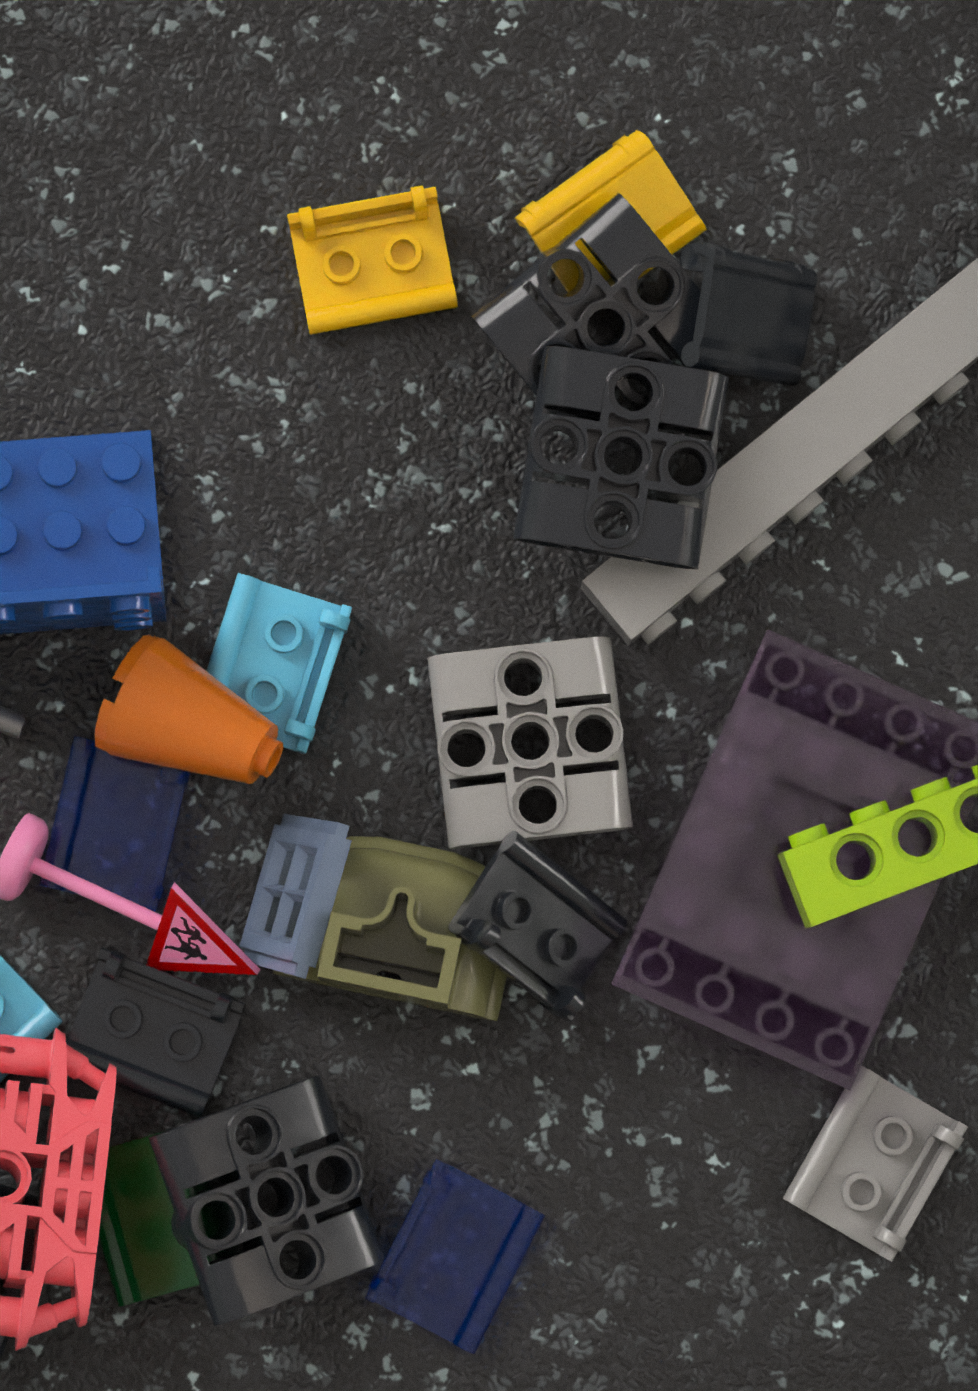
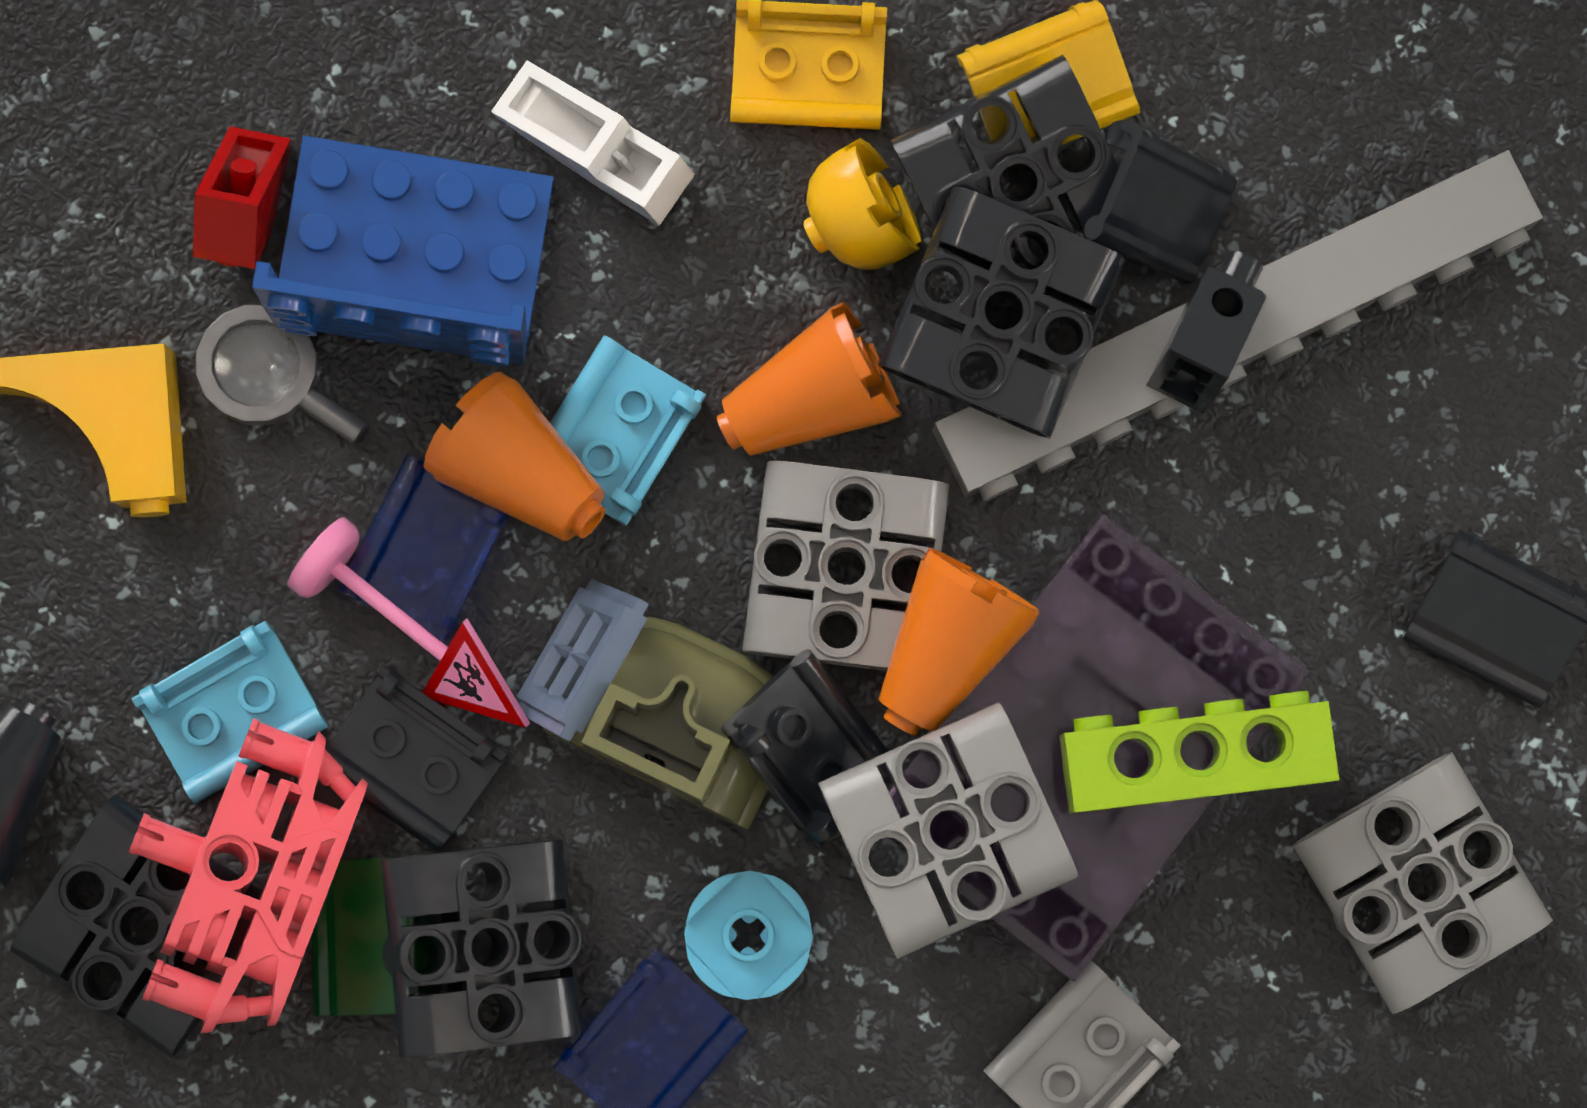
camera: 15 degrees right, 0 degrees up
(181, 387) = (594, 142): none -> white slope
(453, 577) = (811, 389): none -> orange cone
(457, 392) = (858, 210): none -> yellow cylinder
(530, 1159) = (748, 972): none -> medium azure plate
(648, 790) = (949, 641): none -> orange cone
(774, 970) = (1029, 846): none -> light grey connector
(828, 429) = (1210, 333): none -> black torso

